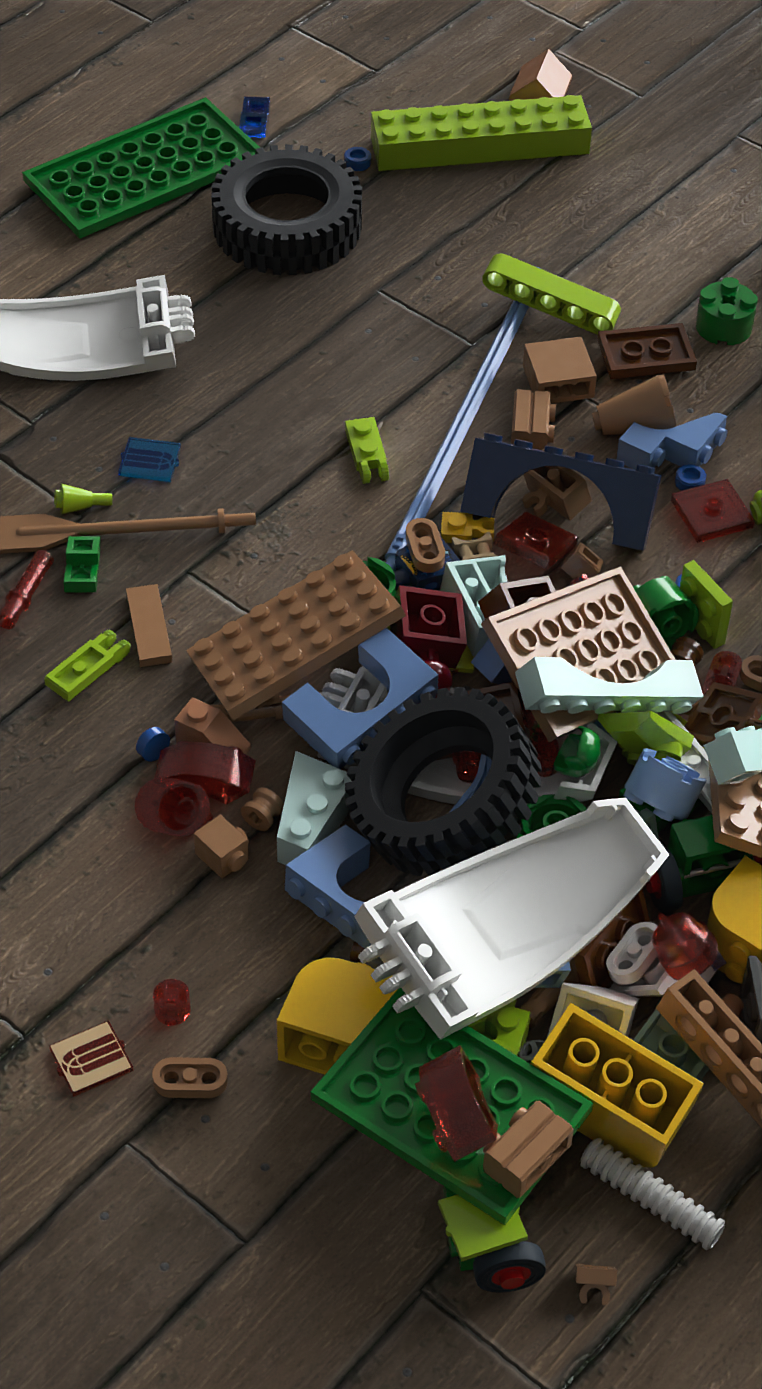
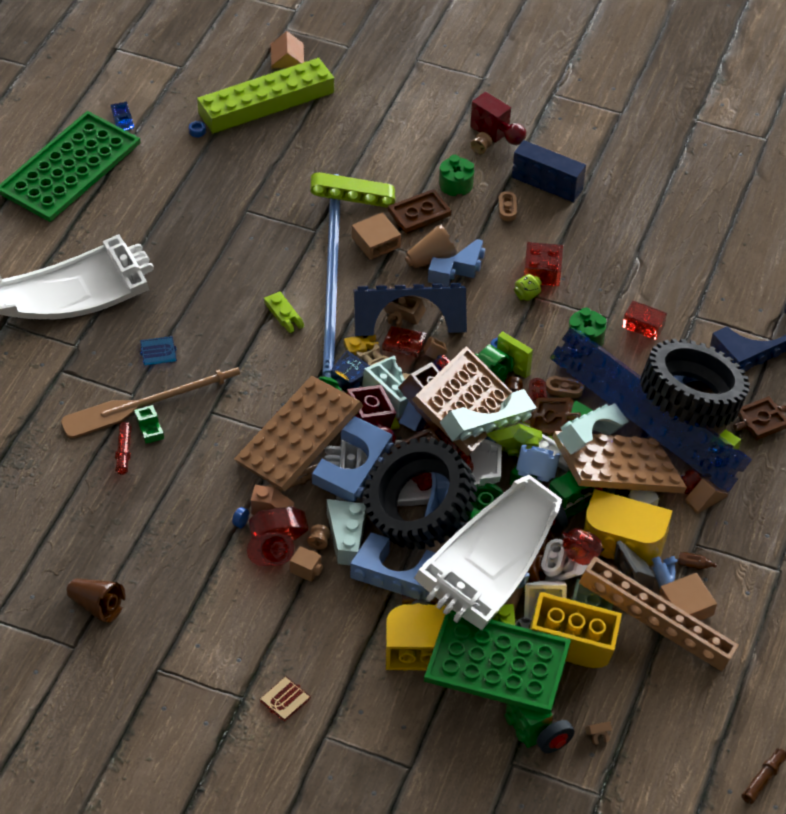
camera: 20 degrees left, 0 degrees up
(74, 499) = (125, 386): lime cone -> none
(86, 665) = (180, 483): lime hinge -> none
(149, 625) = (205, 450): medium nougat tile -> none
(172, 992) = (315, 650): clear red wheel -> none
(190, 1077) = (344, 692): medium nougat plate -> none
(286, 242) = (174, 196): black tyre -> none
(425, 545) = (348, 361): medium nougat plate -> none
(456, 1104) = (506, 659): clear red brick -> none
(477, 1232) = (536, 722): lime piece -> none
(527, 1148) = (549, 671): medium nougat brick -> none
(532, 418) = (372, 269): medium nougat brick -> none
(578, 754) = (484, 457): green hair -> none
(652, 1193) = (610, 679): white piece -> none
(689, 476) = (474, 282): blue tile -> none
(712, 510) = (494, 298): clear red plate -> none

